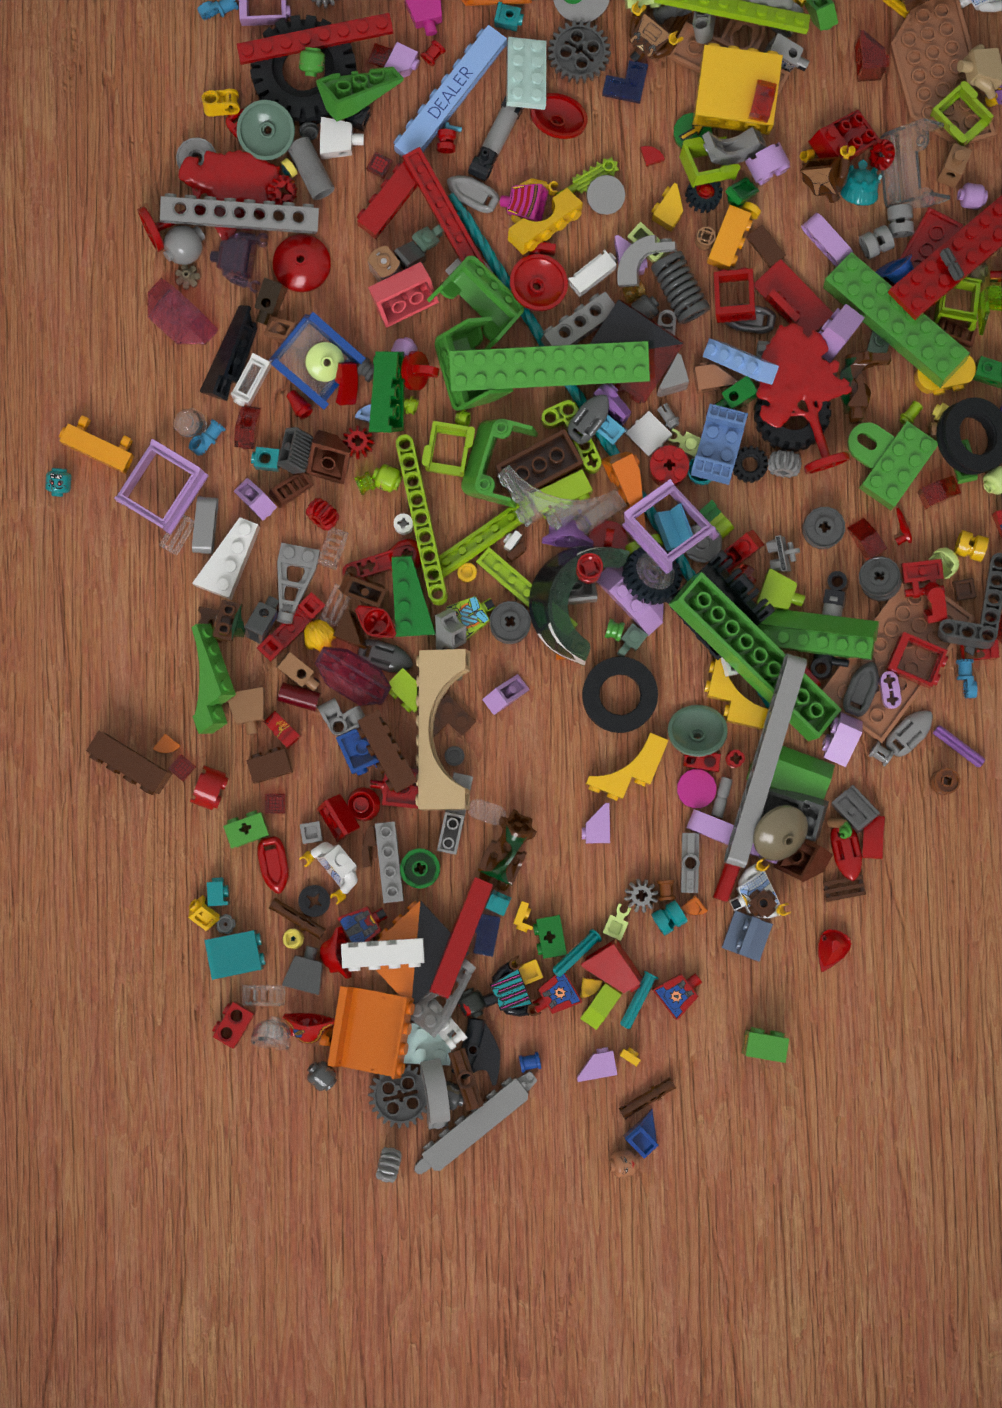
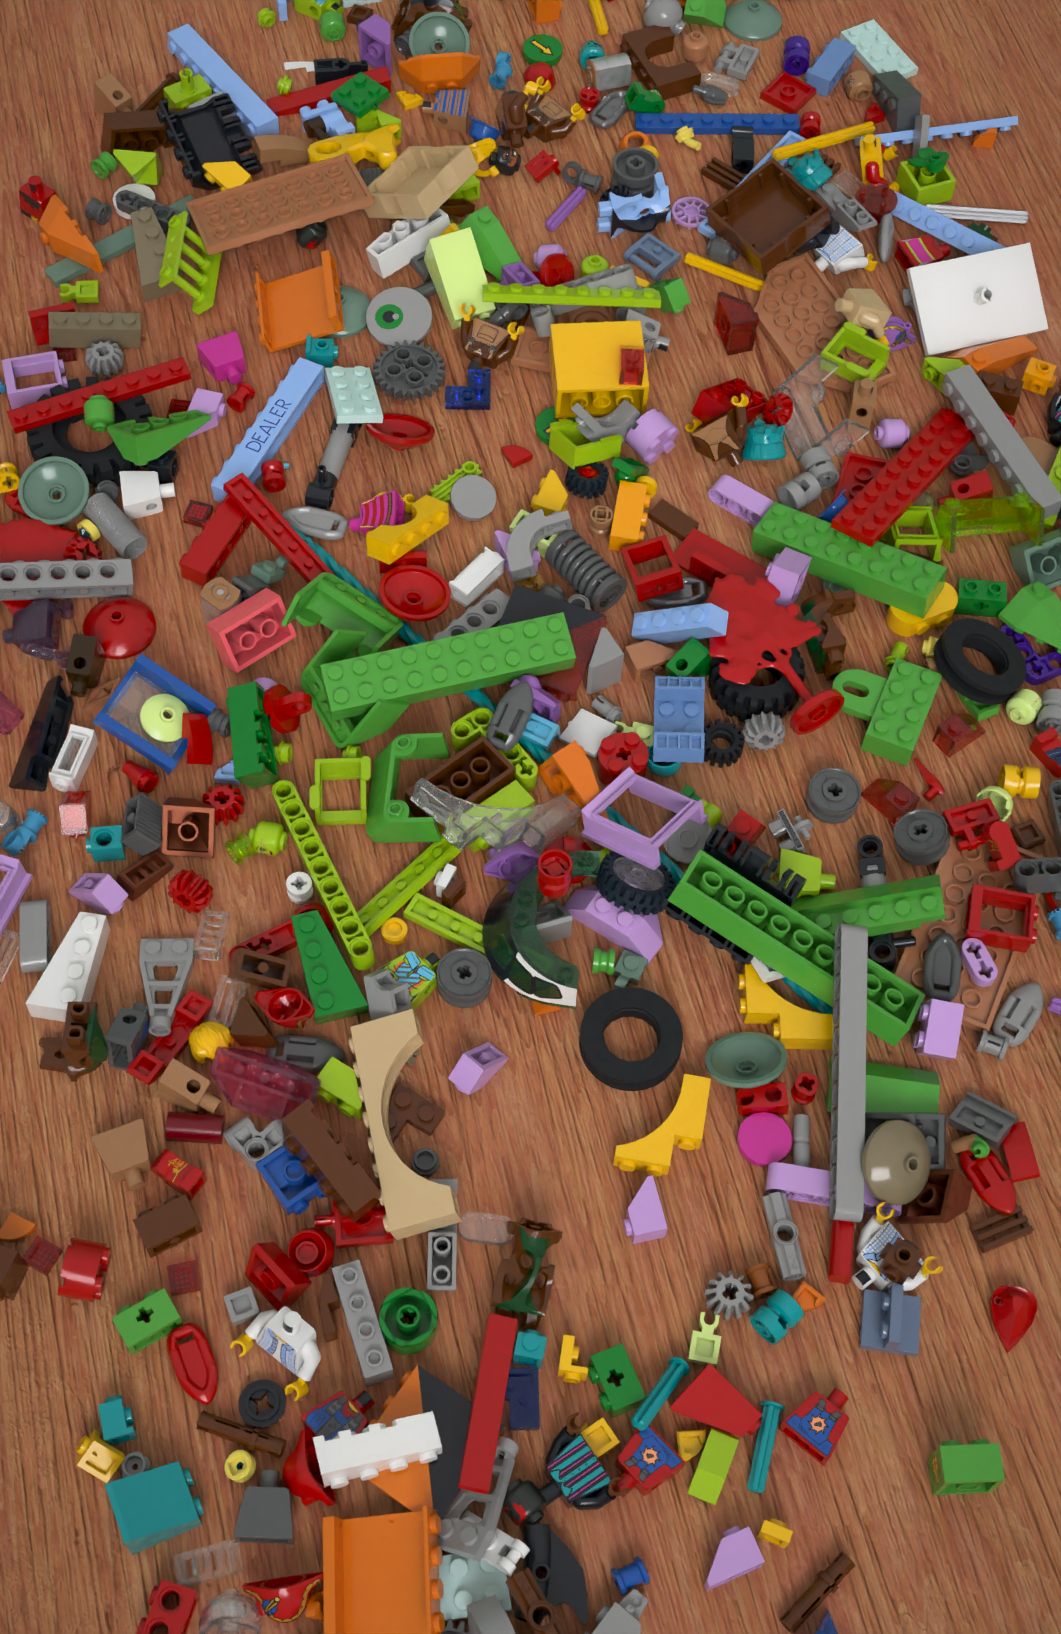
camera: 15 degrees left, 25 degrees down
(214, 682) = (72, 1125): bright green arch -> none
(673, 527) = (647, 820): medium azure panel -> none
(954, 267) = (898, 487): dark grey piece -> none

